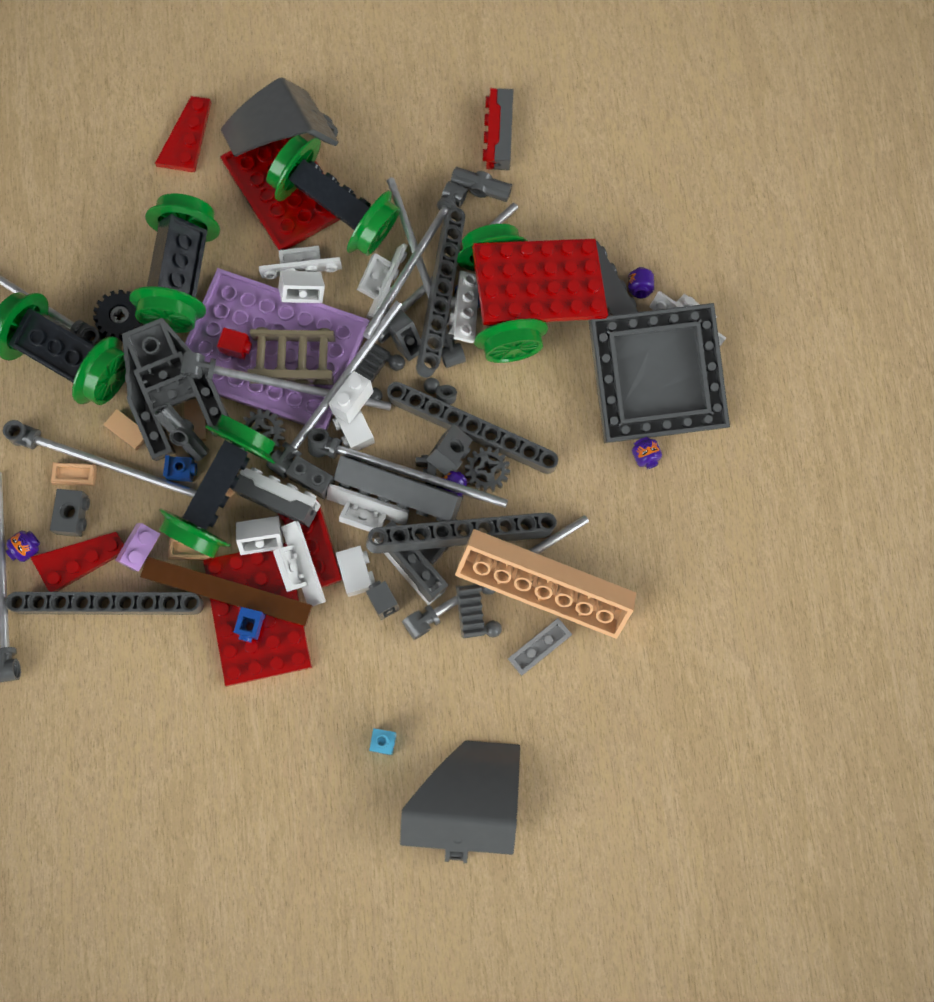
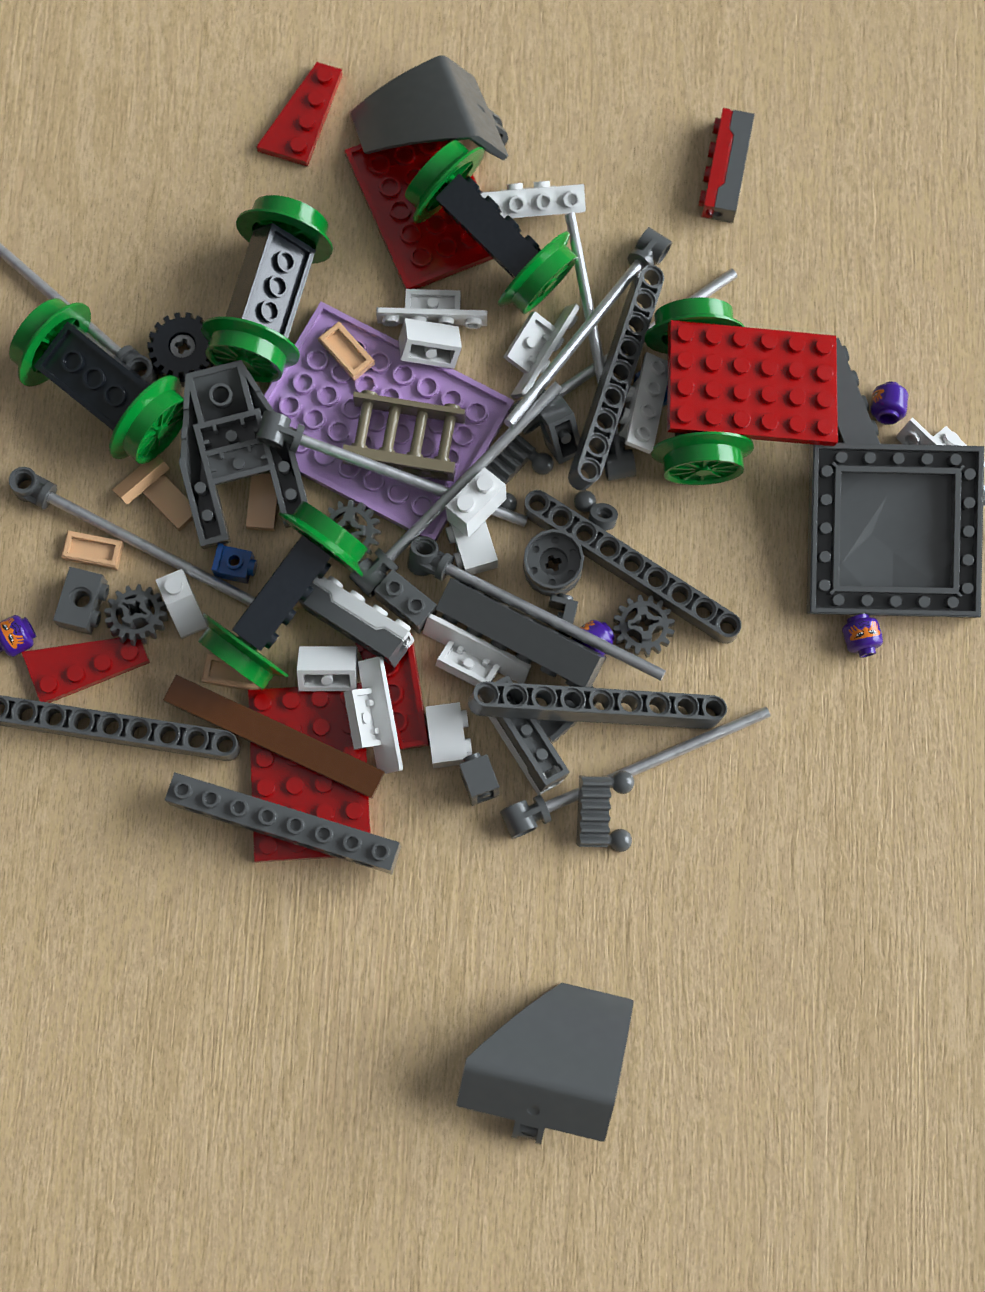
camera: 10 degrees right, 0 degrees up
(102, 417) = (140, 480): none -> light nougat tile
(112, 517) = (136, 615): none -> dark grey gear
(137, 547) = (165, 659): lavender piece -> none
(144, 503) = (181, 603): none -> white slope
(181, 432) = (244, 515): dark grey piece -> none
(234, 343) = (330, 407): red brick -> none
(241, 301) = (346, 351): none -> light nougat tile
(241, 654) = (283, 823): none -> dark grey brick
(244, 618) = (296, 774): blue brick -> none
(367, 172) = (539, 200): none -> white bracket
(382, 741) = (452, 967): medium azure brick -> none
(418, 422) = (559, 548): none -> dark grey wheel
(449, 450) = (597, 592): dark grey brick -> none
(481, 184) = (692, 237): dark grey piece -> none
(539, 646) = (679, 873): light grey plate -> none
(546, 584) = (700, 791): light nougat brick -> none

